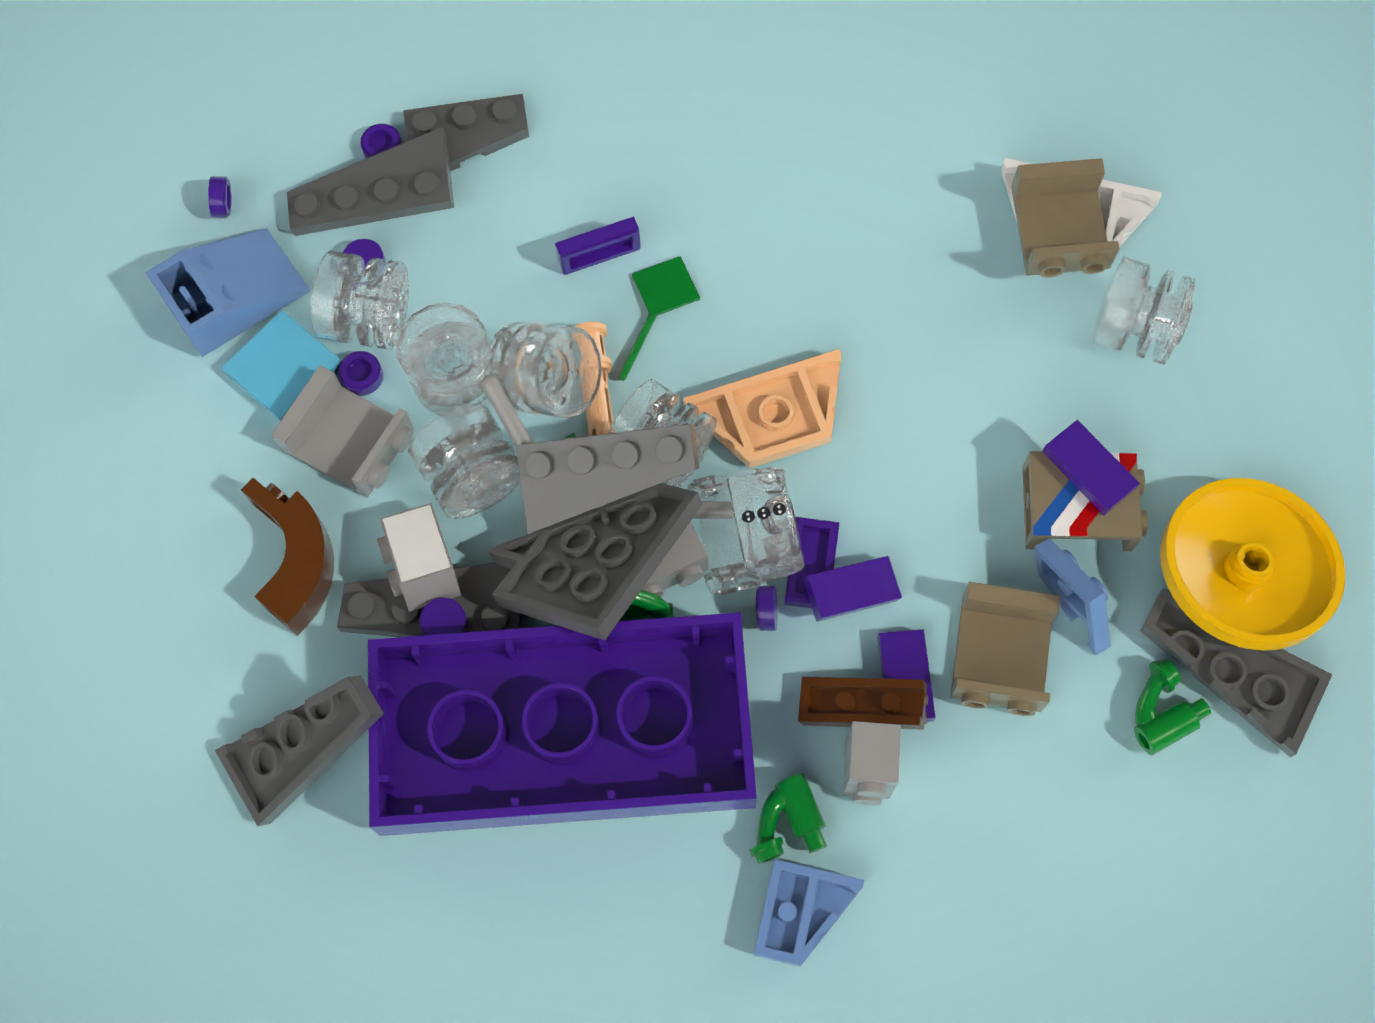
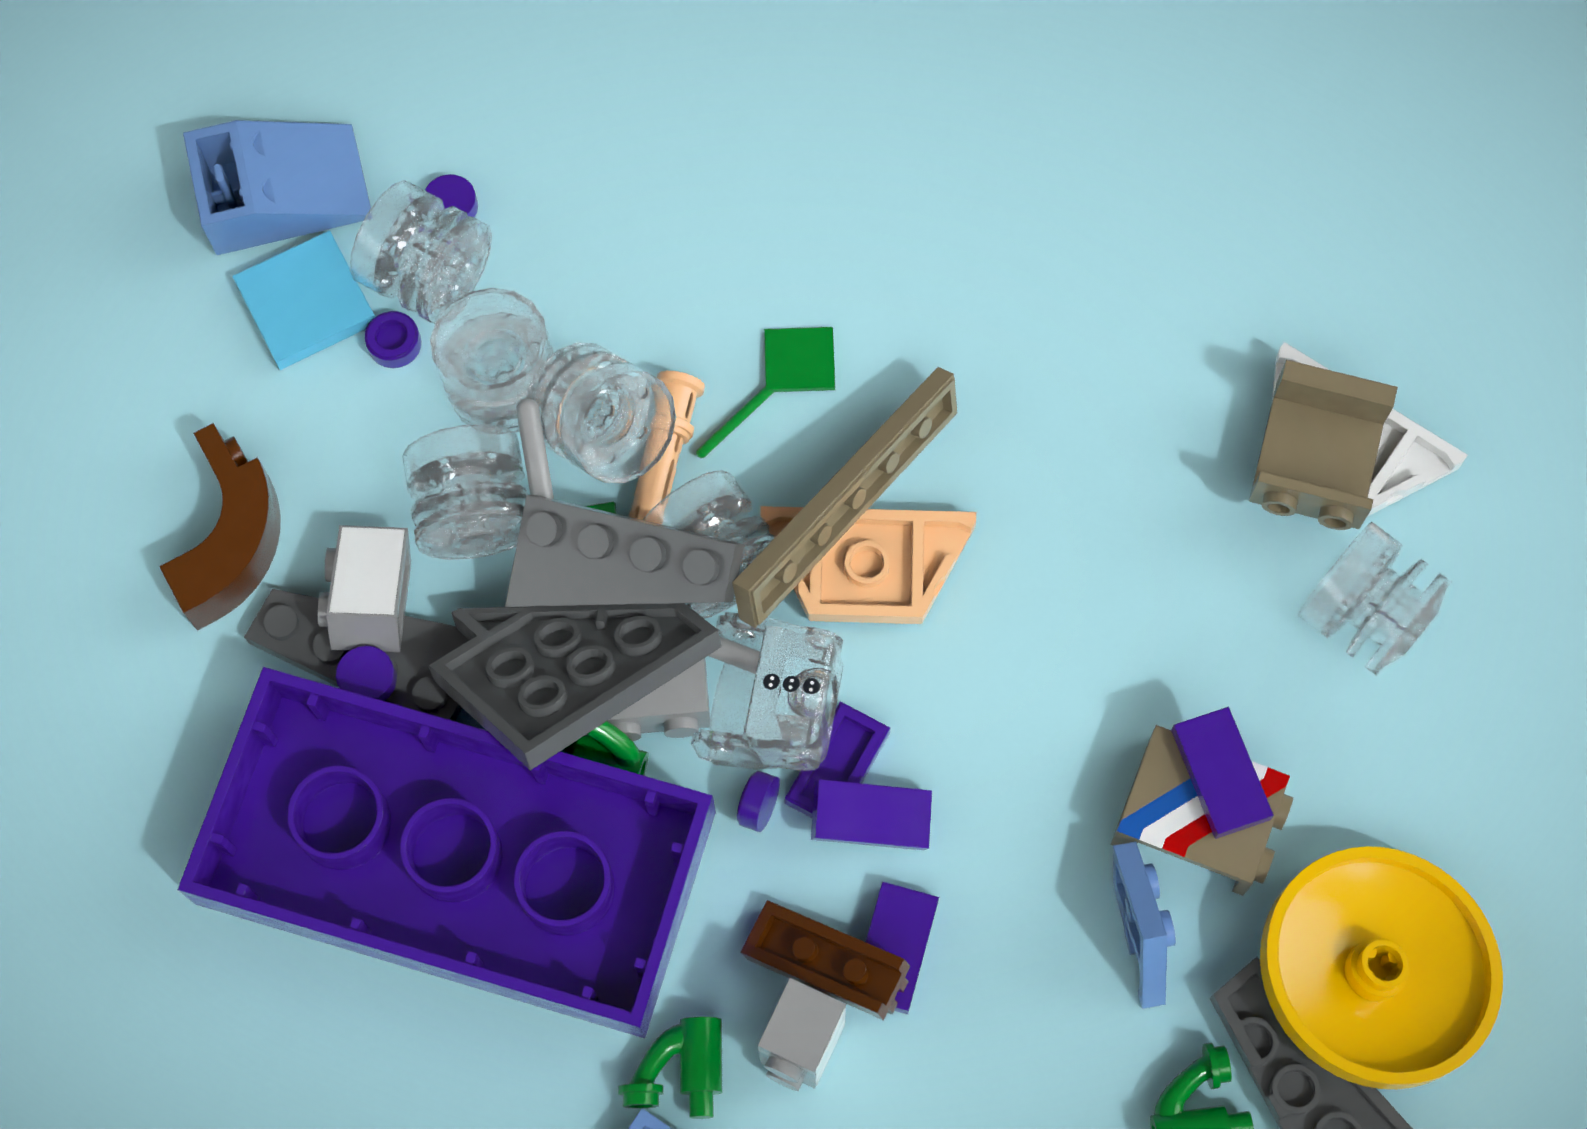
camera: 20 degrees right, 0 degrees up
(219, 197) = (310, 67): dark purple tile -> none
(288, 754) = (135, 764): dark grey wing -> none
(343, 433) = (342, 405): light grey panel -> none
(378, 139) = (527, 66): dark purple tile -> none
(383, 187) = (504, 120): dark grey wing -> none
(472, 125) = (622, 80): dark grey wing -> none
(598, 245) = (734, 281): dark purple tile -> none
(745, 370) = (845, 498): none -> dark tan tile
(1003, 648) = (1028, 958): dark tan panel -> none

